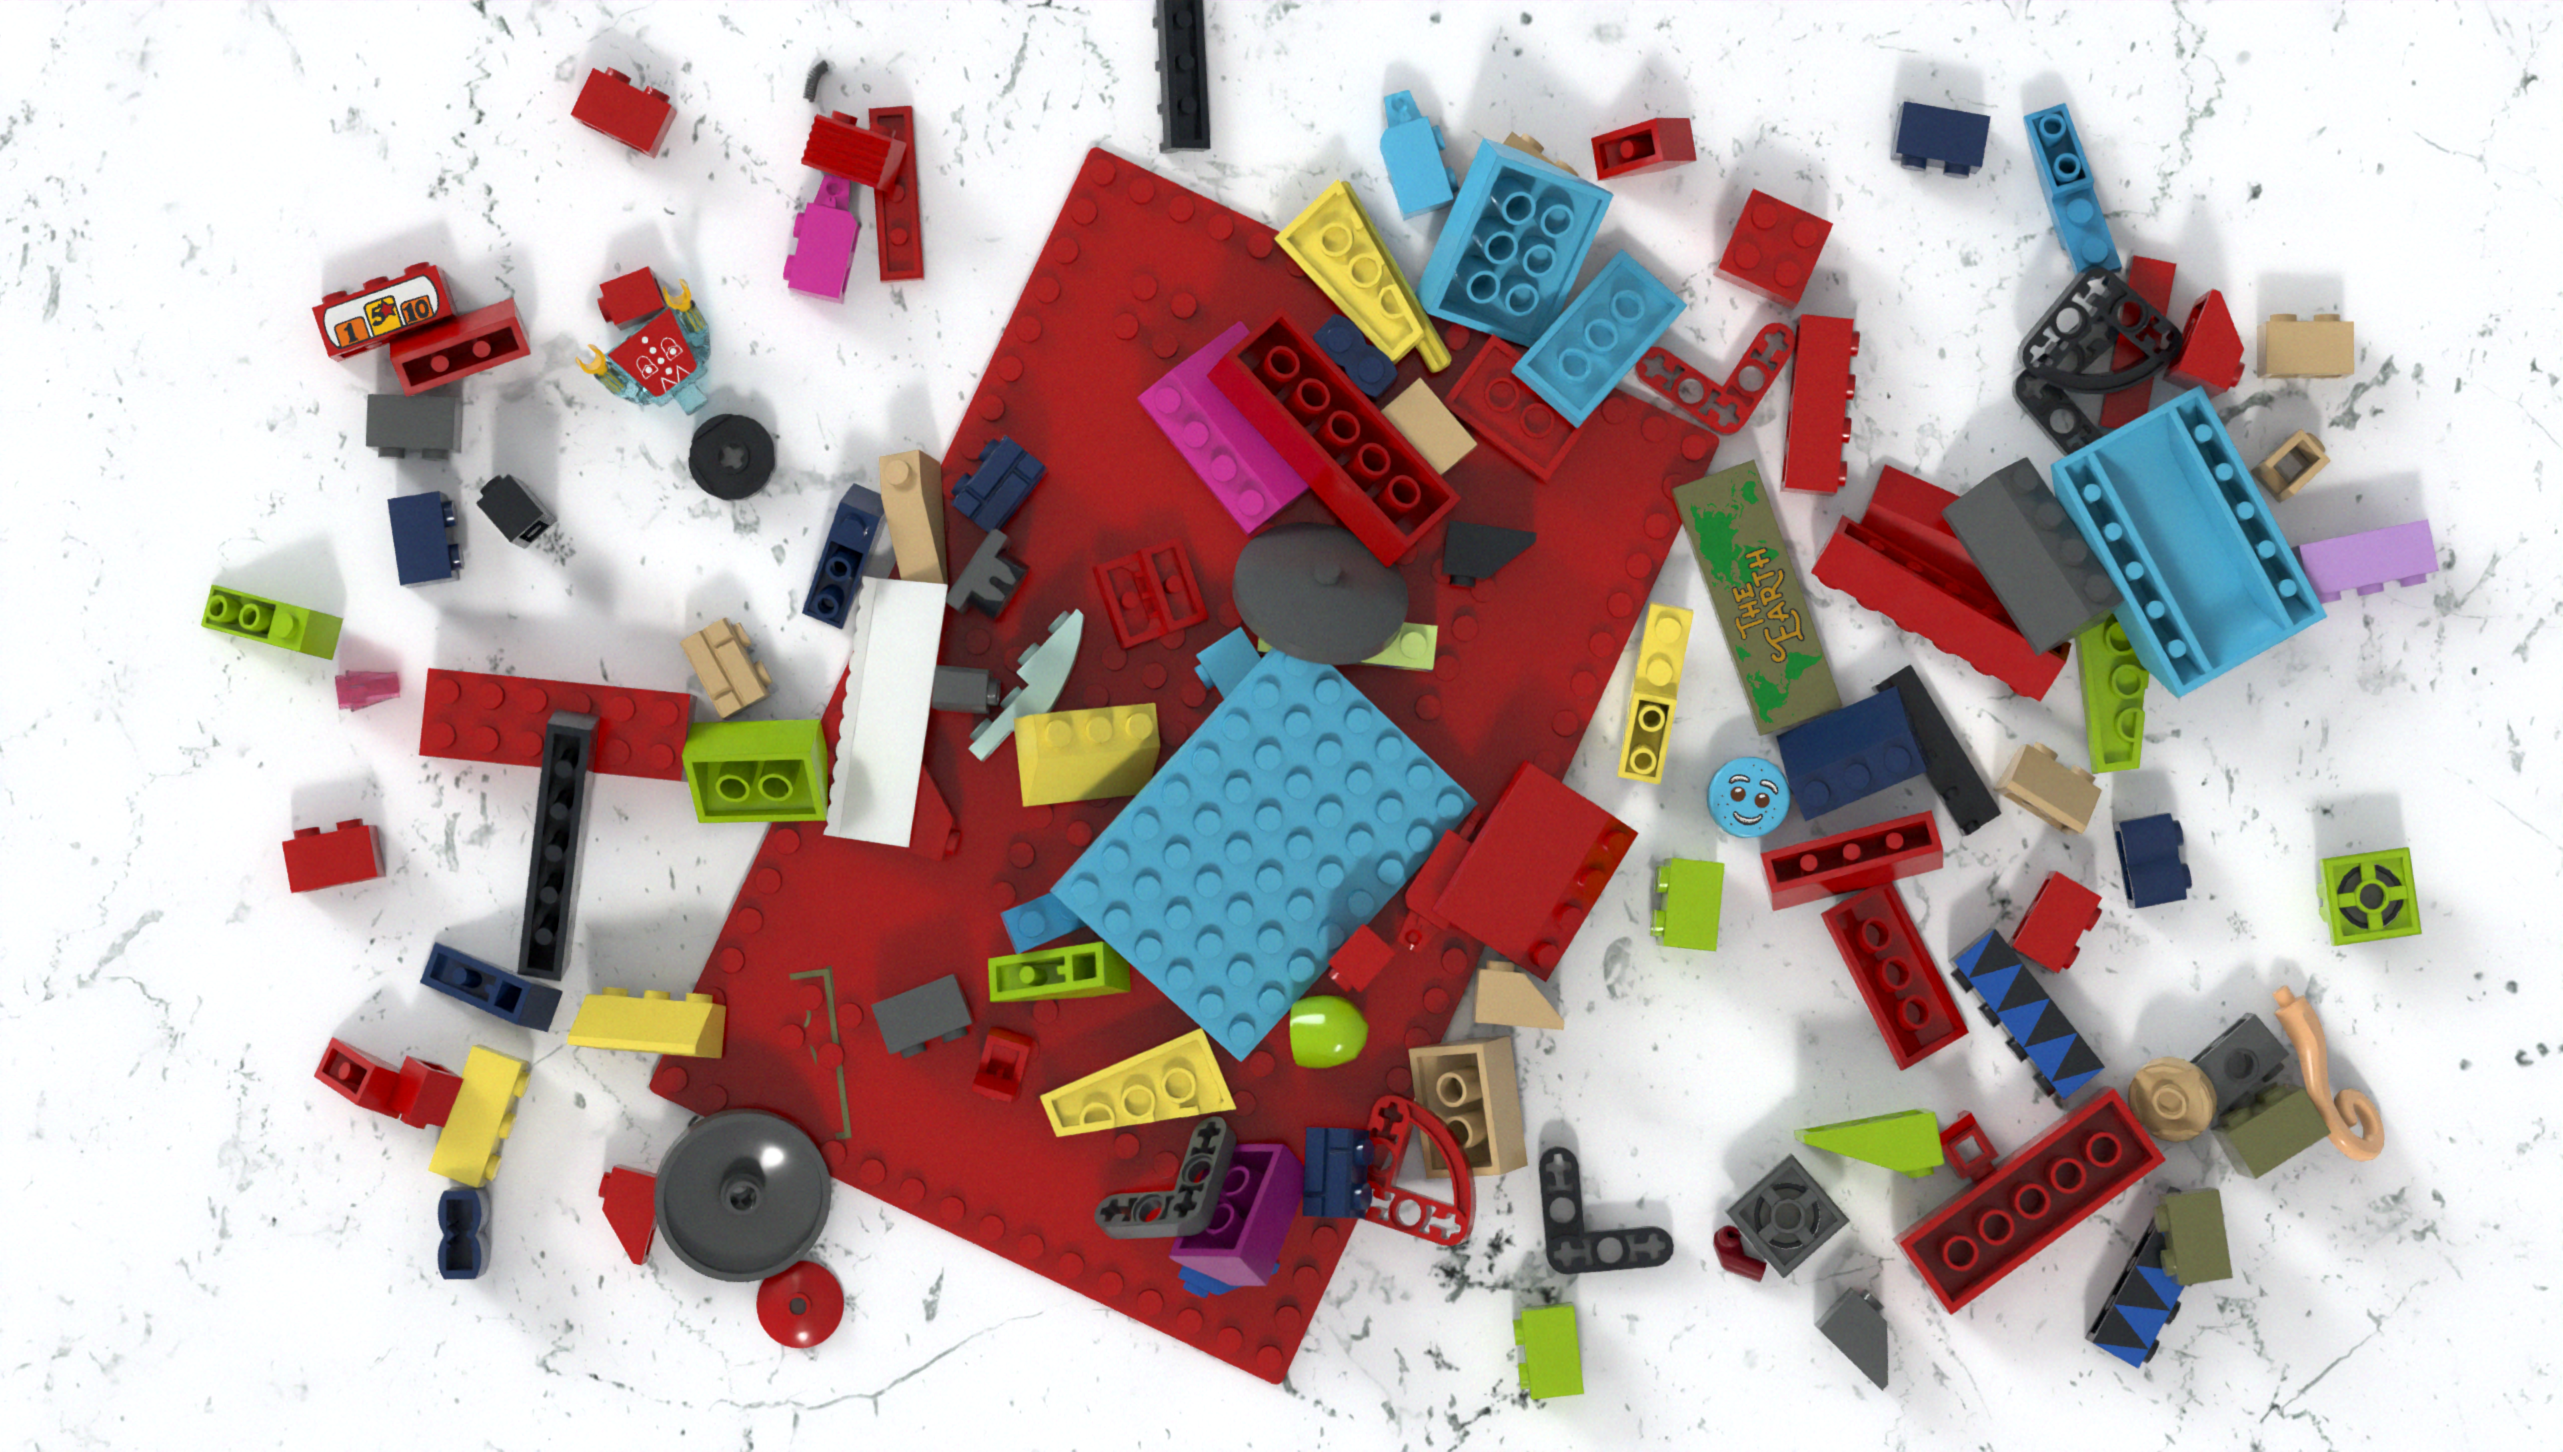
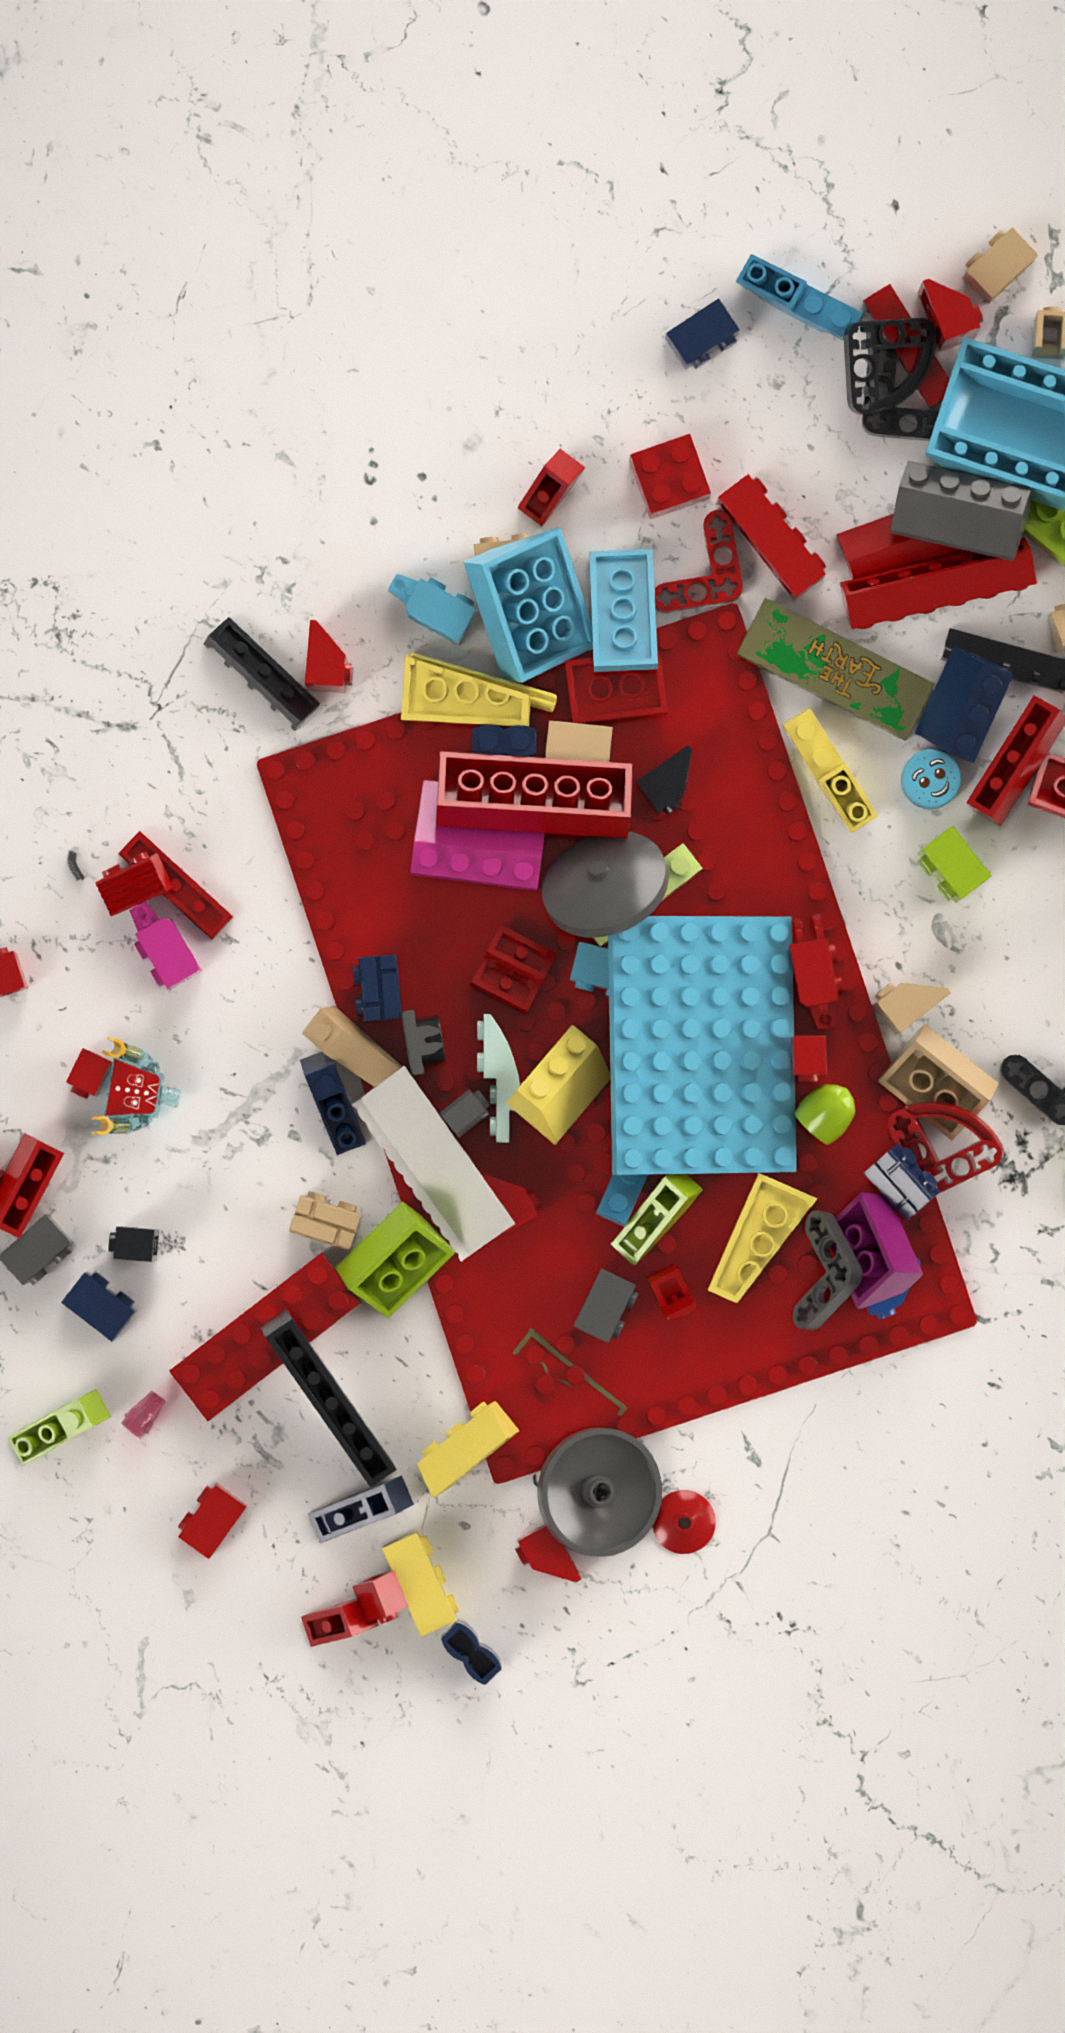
camera: 50 degrees left, 0 degrees up
(707, 453) = (232, 1122): black plate -> none
(1250, 111) = (326, 663): none -> red slope
(1535, 871) = (856, 923): red slope -> none

